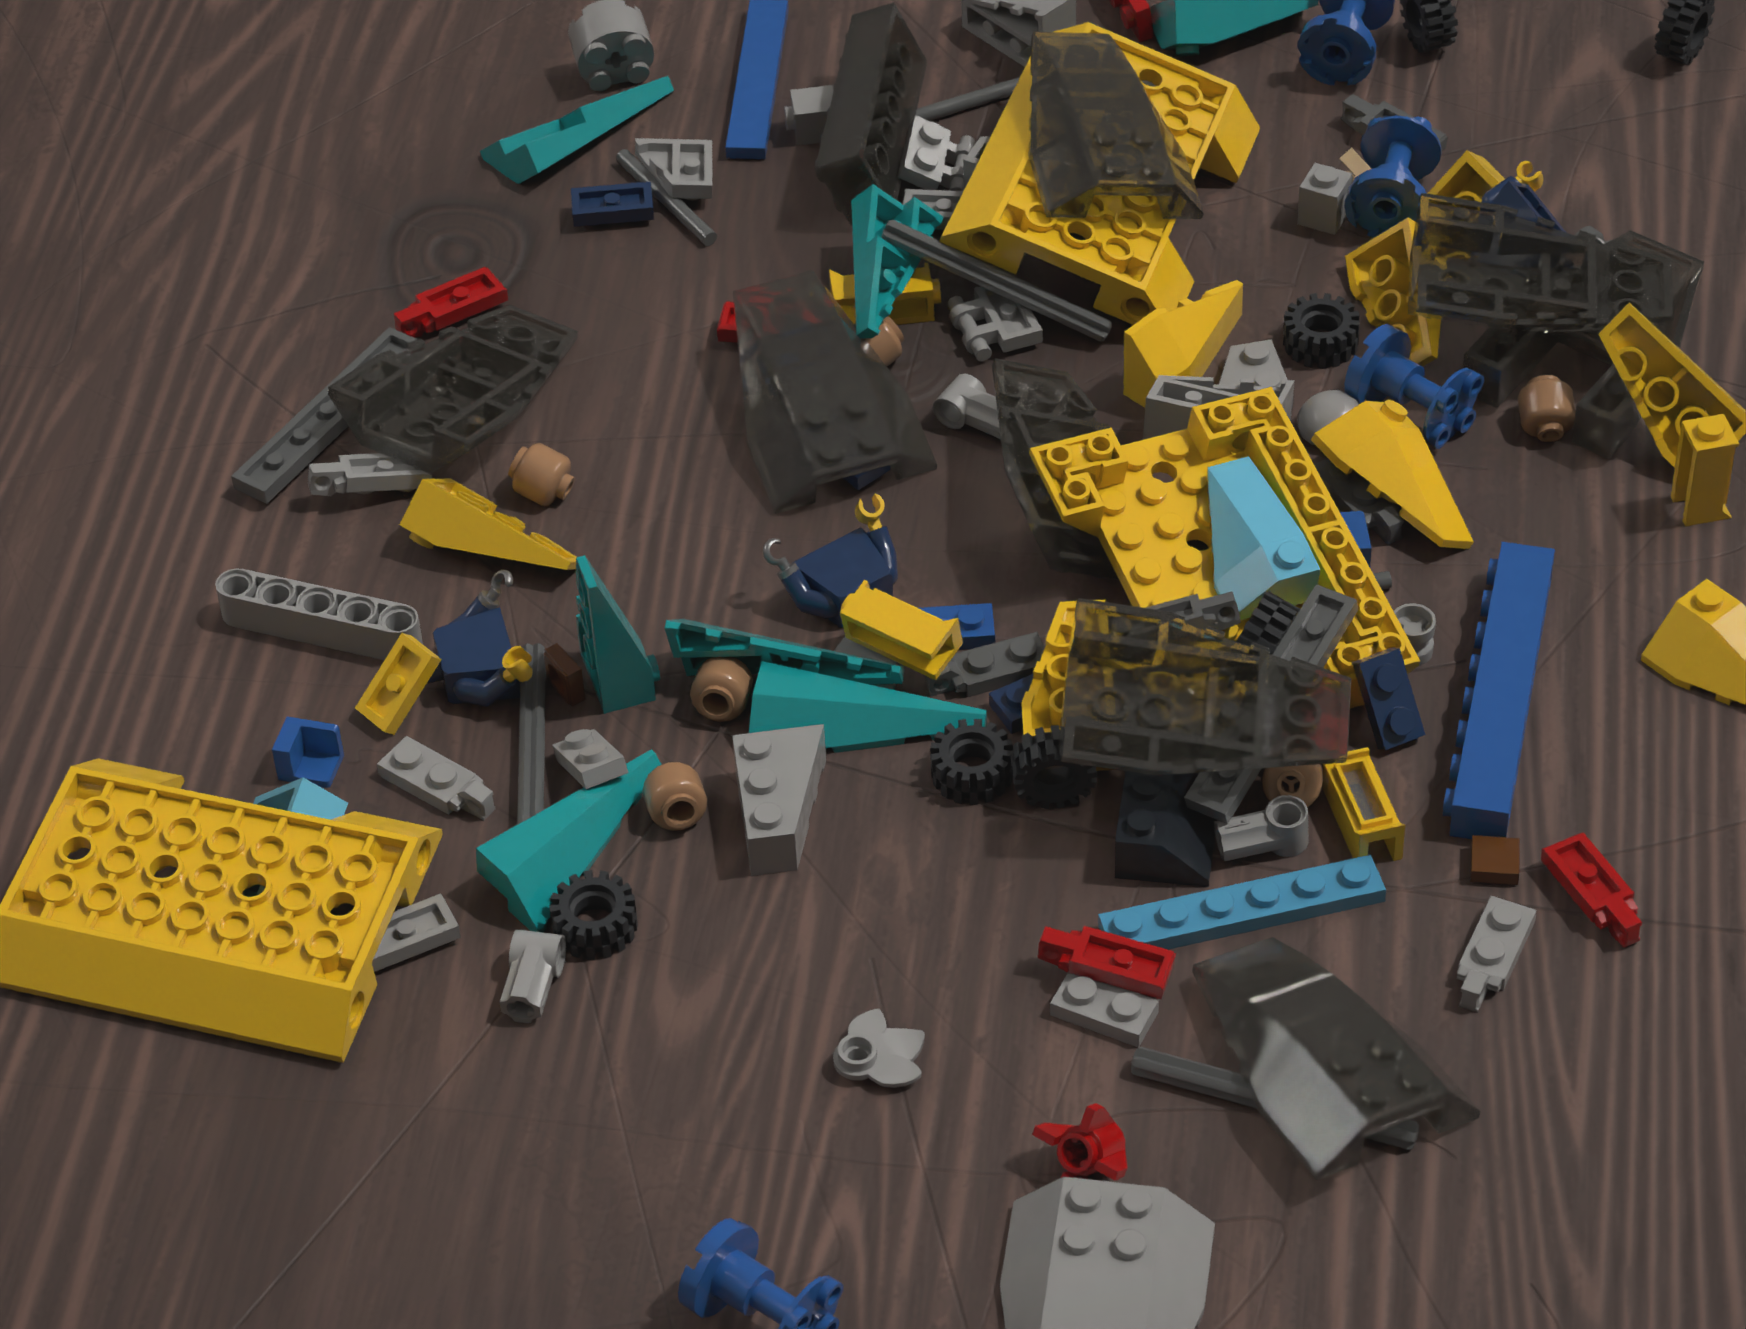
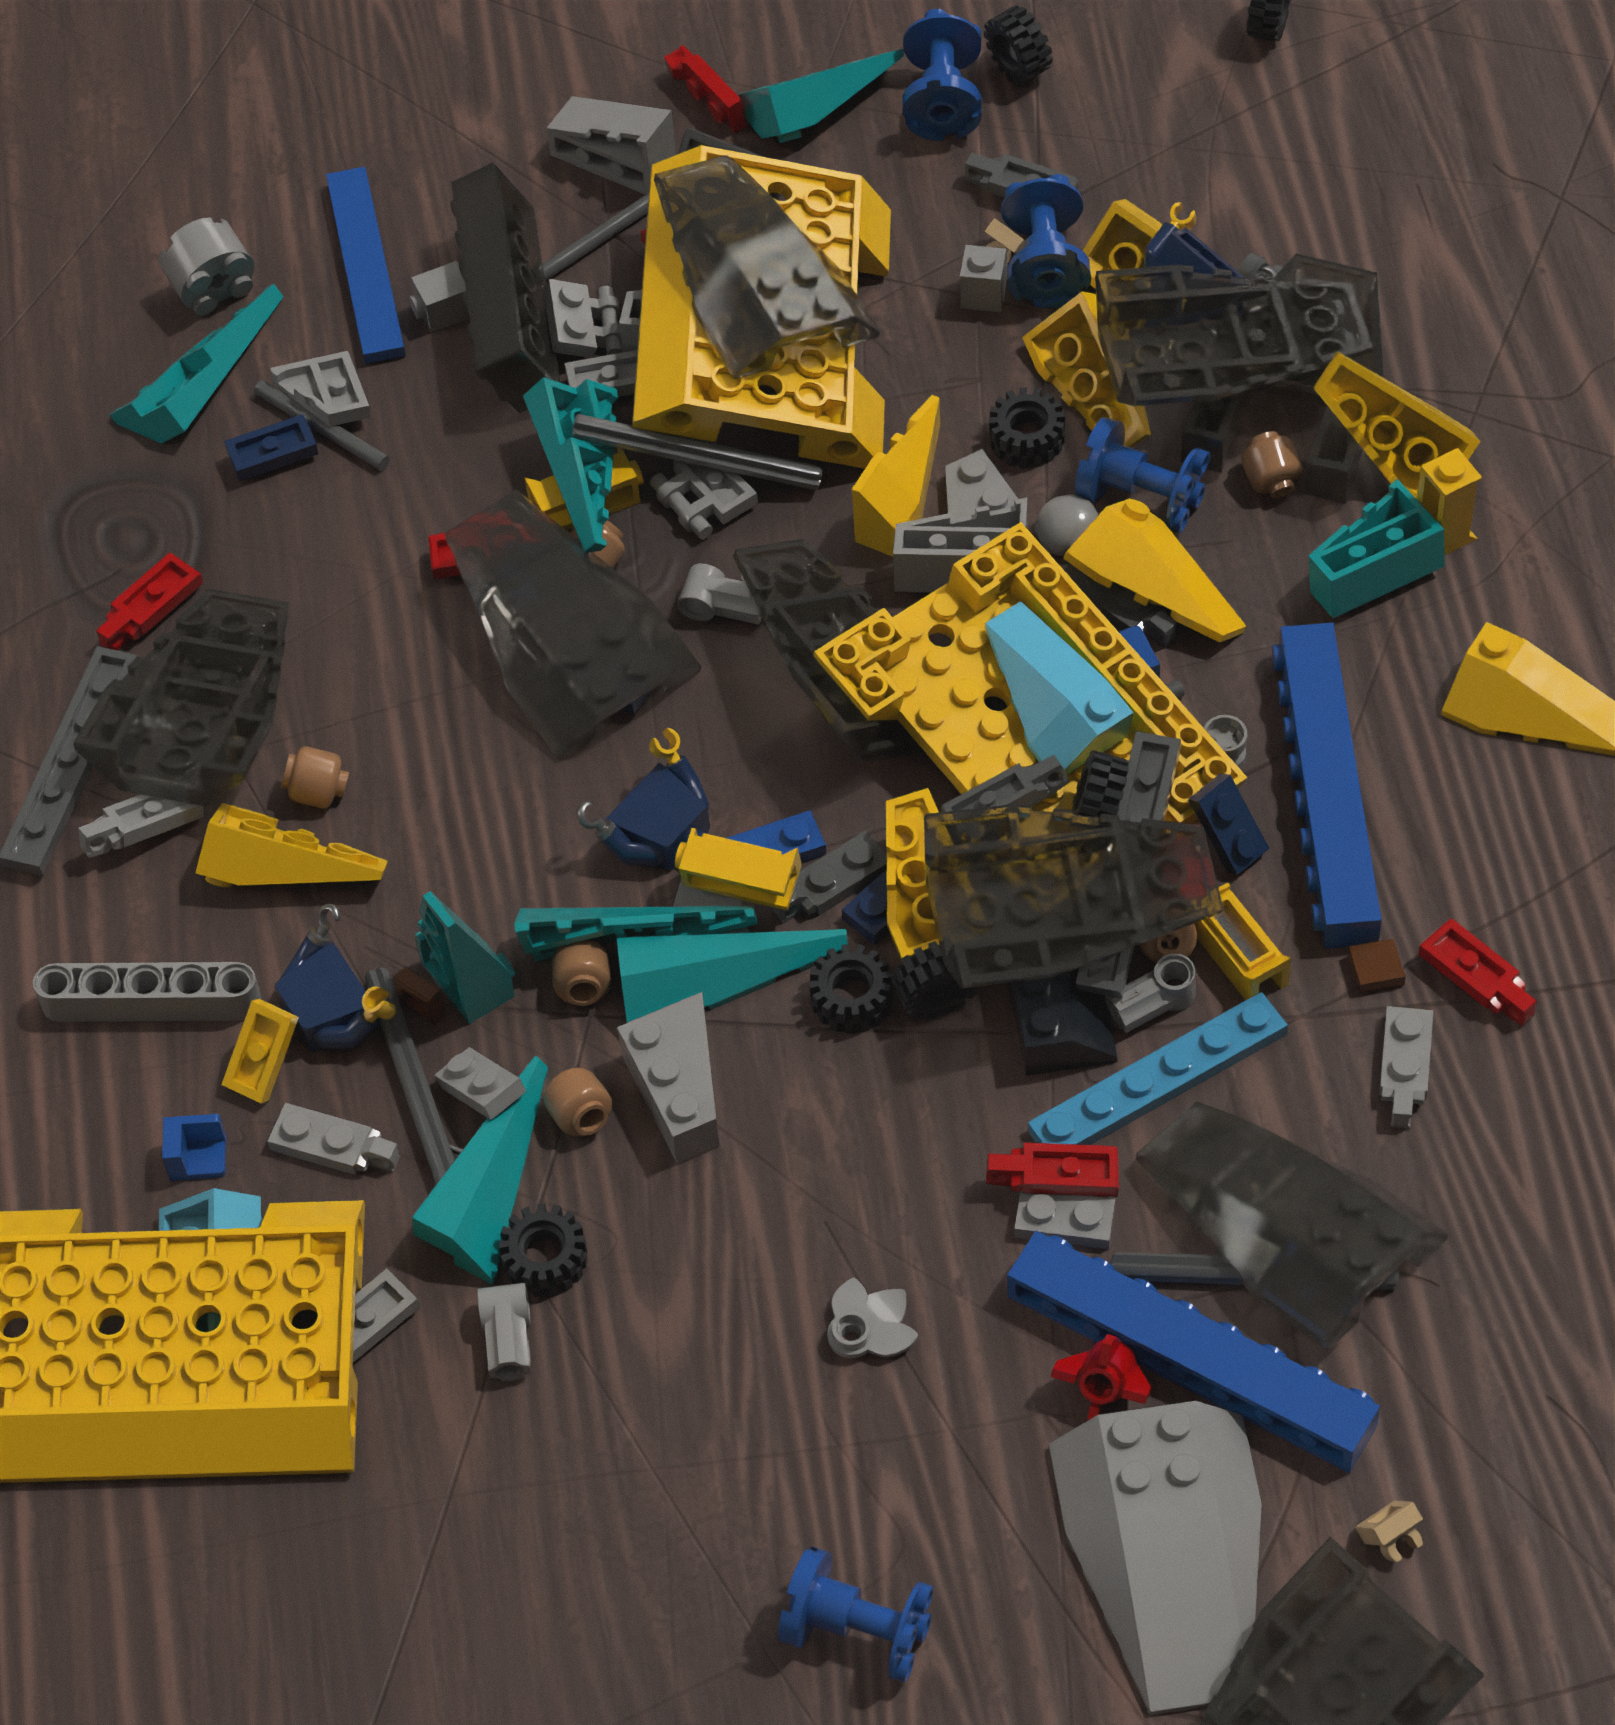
camera: 15 degrees left, 10 degrees up
(1189, 1153) = (1195, 1351): none -> blue brick
(1621, 503) = (1377, 553): none -> teal wedge

